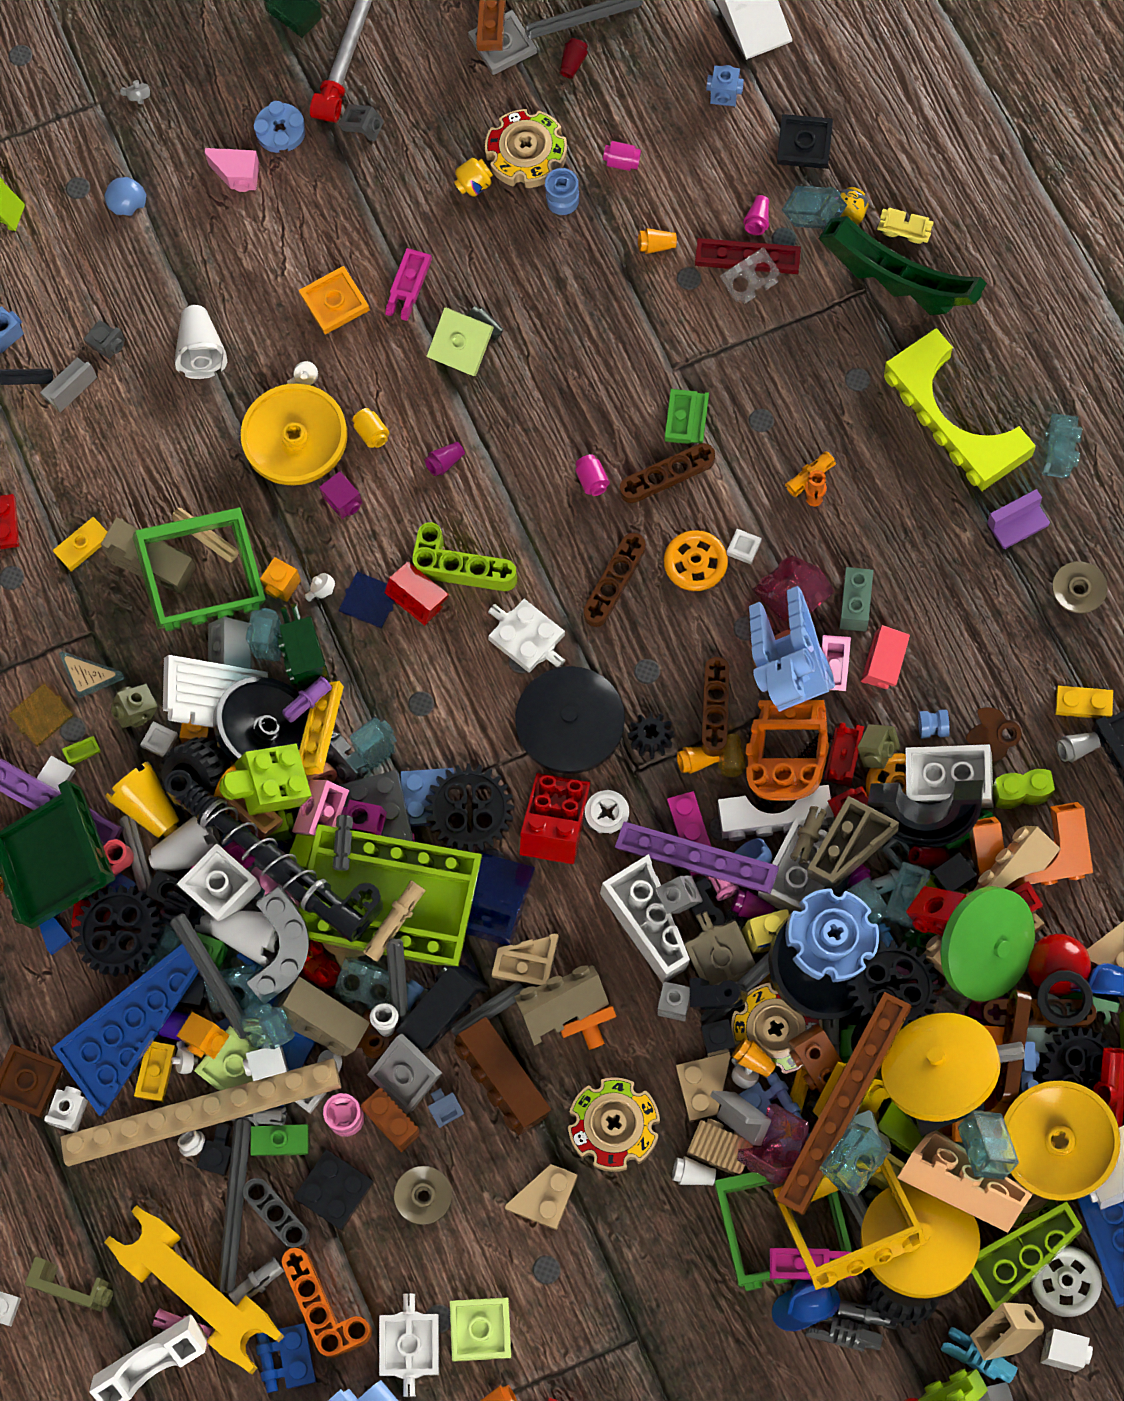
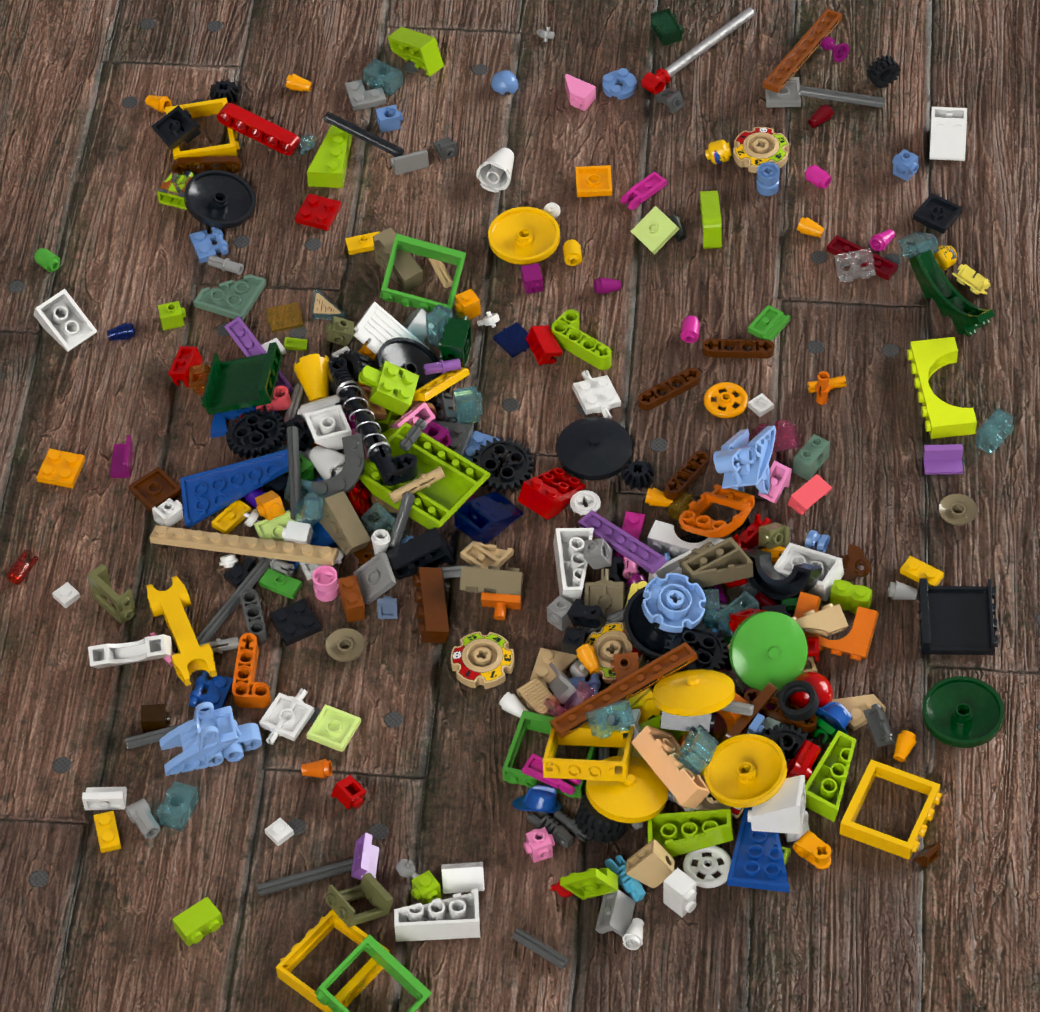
camera: 25 degrees right, 20 degrees down
(523, 288) = (711, 219): none -> lime beam
(545, 1197) = (417, 680): tan wing -> none
(837, 1377) = (539, 844): none -> bright pink brick

